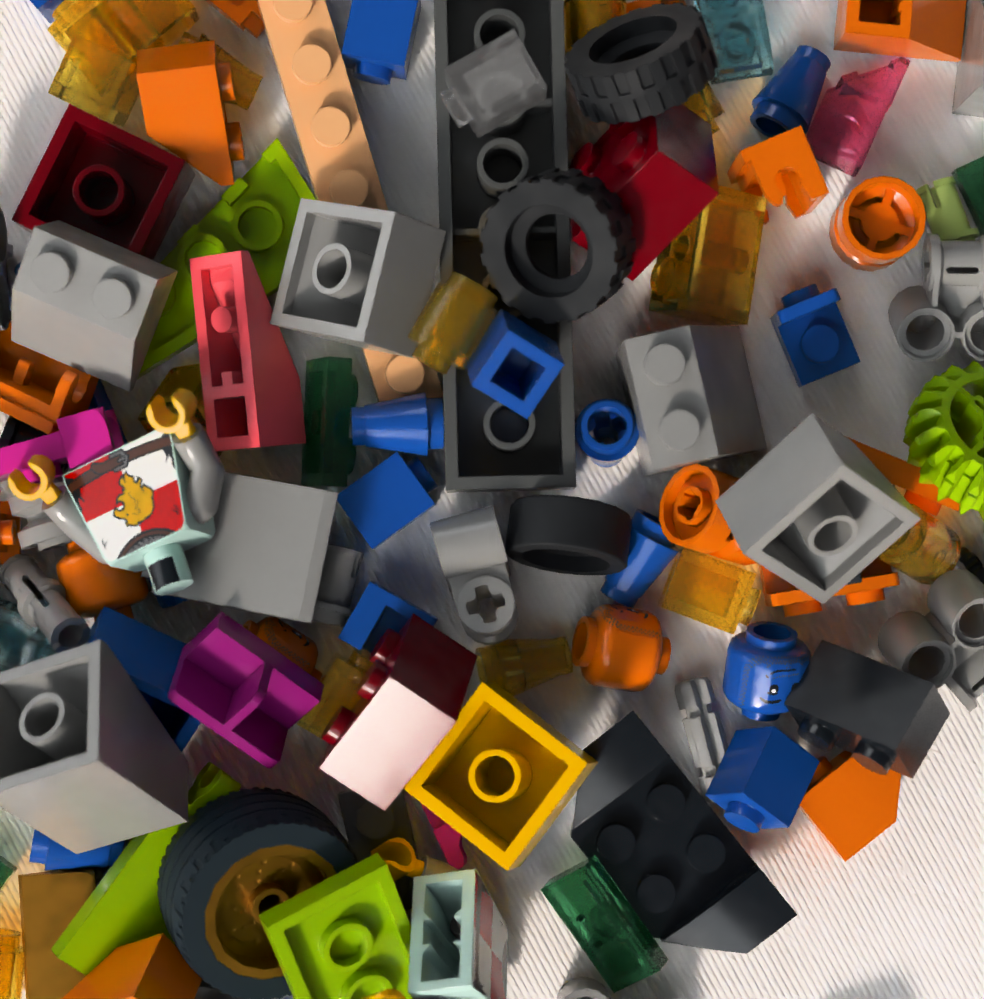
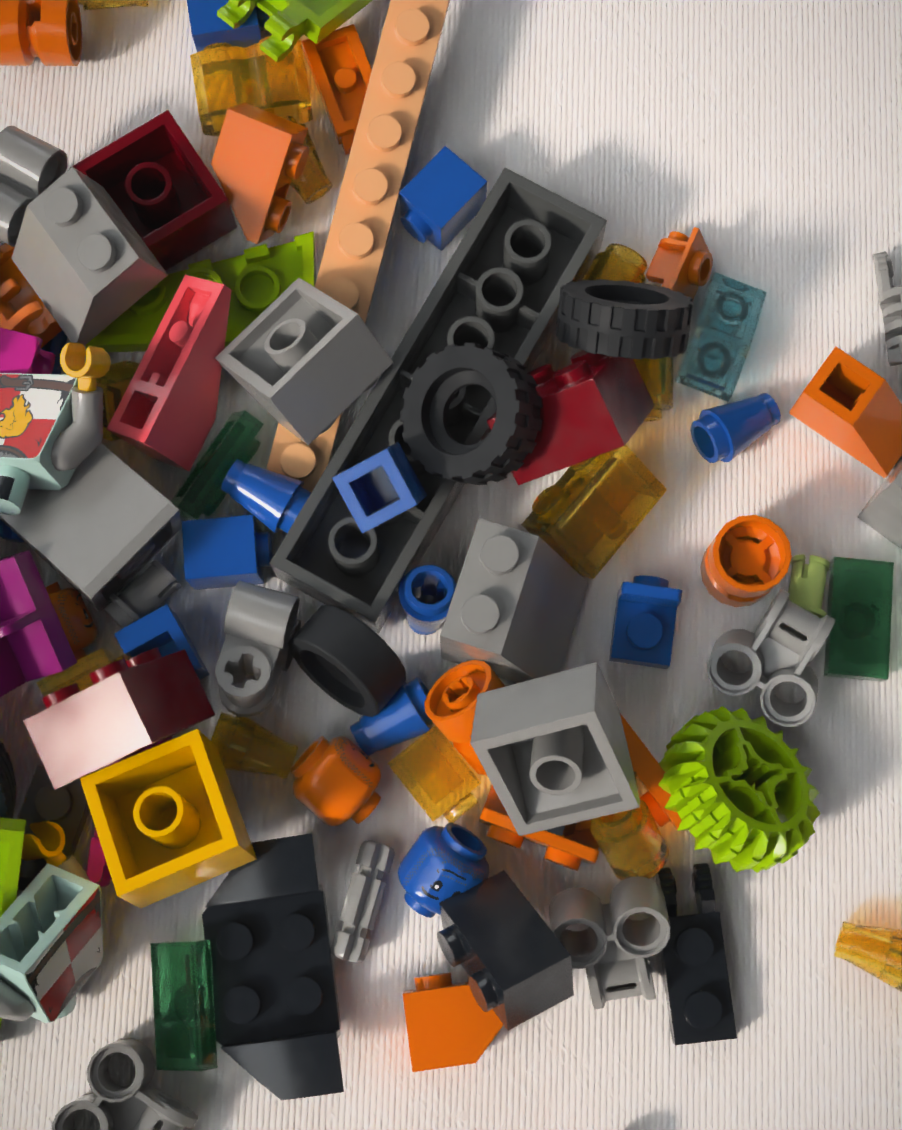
camera: 30 degrees right, 10 degrees down
(96, 81) = (198, 107): clear yellow panel -> none
(452, 323) = (352, 431): clear yellow brick -> none
(493, 85) = (496, 269): clear brick -> none
(762, 779) = (385, 959): blue brick -> none
(781, 169) = (691, 468): orange hinge -> none
(852, 115) = (774, 471): clear pink slope -> none

